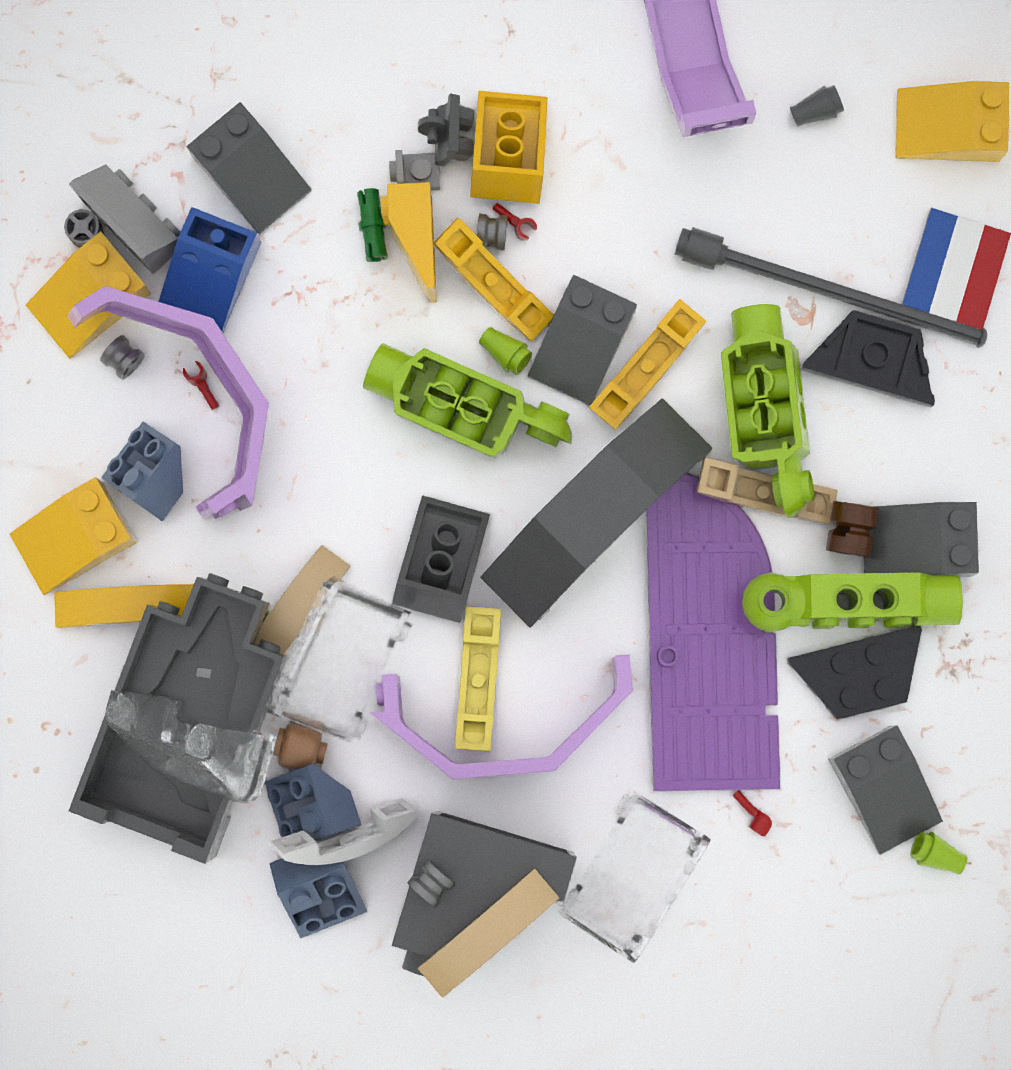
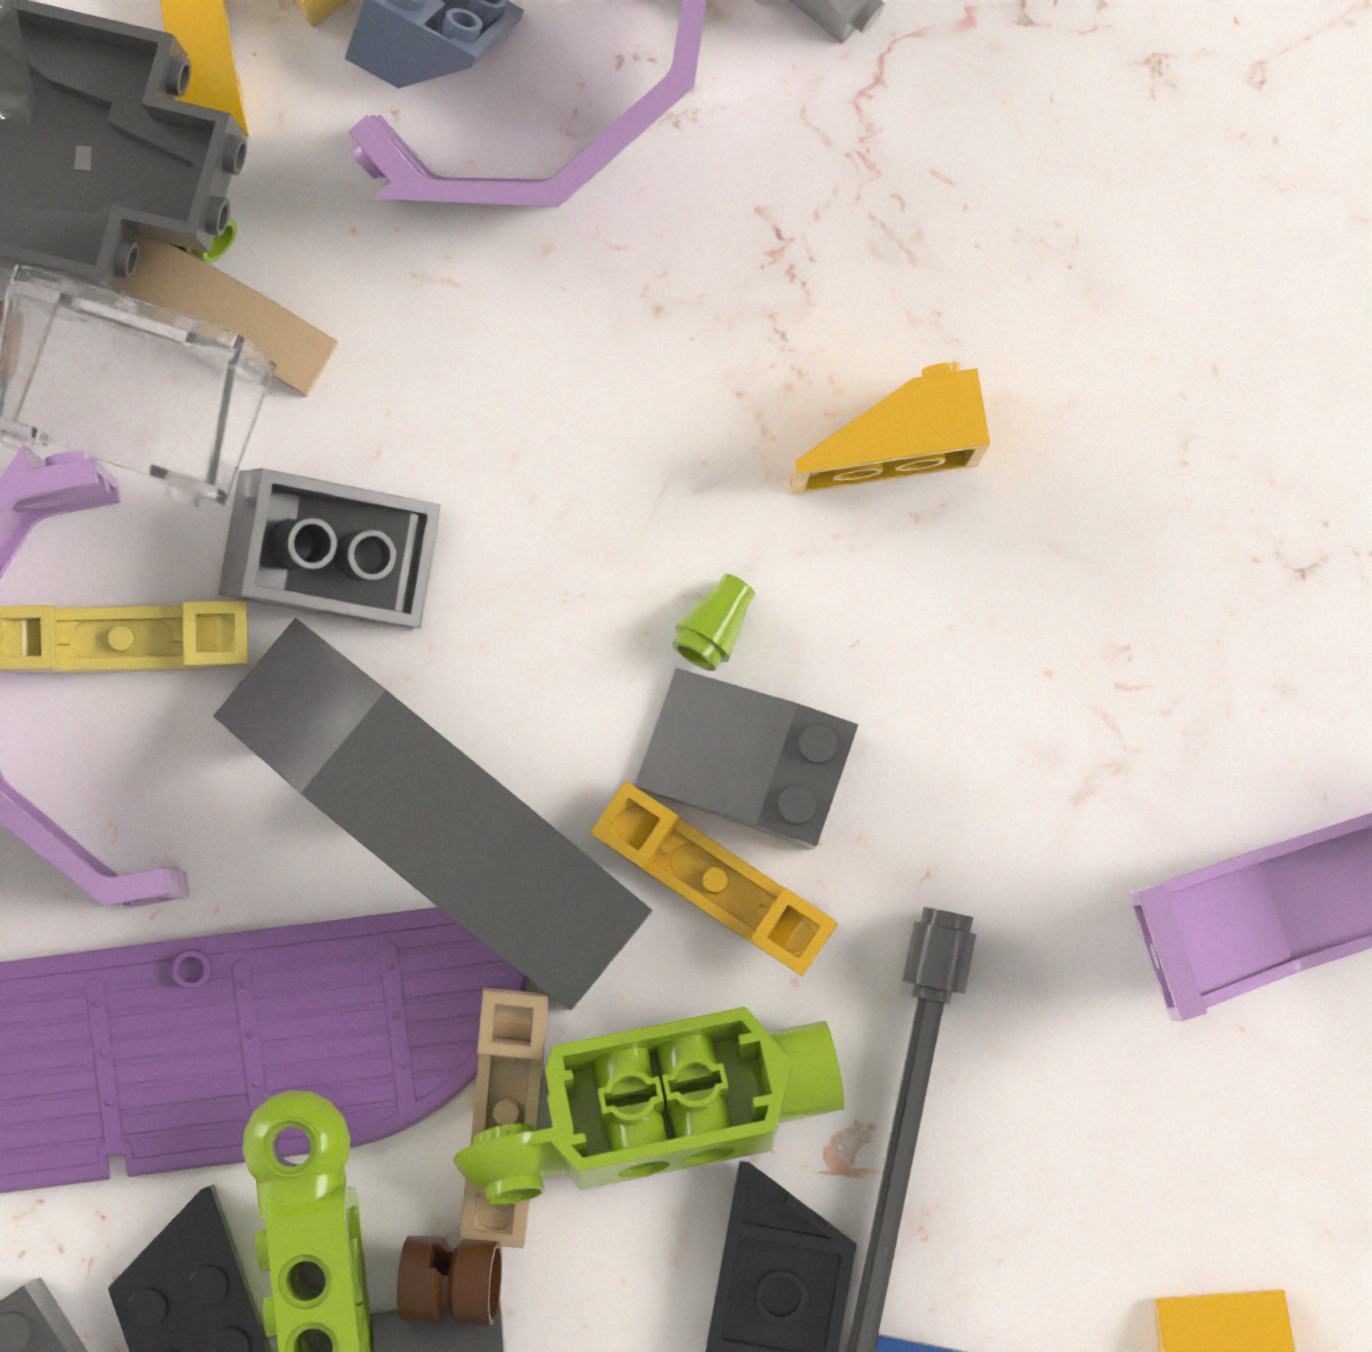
camera: 80 degrees right, 0 degrees up
(200, 382) = (601, 100): red hand -> none
(209, 266) = (795, 84): blue slope -> none
(248, 168) = (992, 134): dark grey slope -> none
(372, 225) = (901, 364): green pin -> none
(415, 169) = (1021, 428): light grey bracket -> none
(443, 129) = (1125, 478): dark grey hips -> none
(460, 401) = (607, 551): lime brick -> none
(492, 231) = (926, 574): flat silver wheel -> none
(492, 280) = (836, 584): yellow slope -> none
(509, 147) = (1085, 588): yellow slope -> none
(515, 221) = (955, 613): red hand -> none
(818, 106) = (1229, 1143): dark grey cone -> none

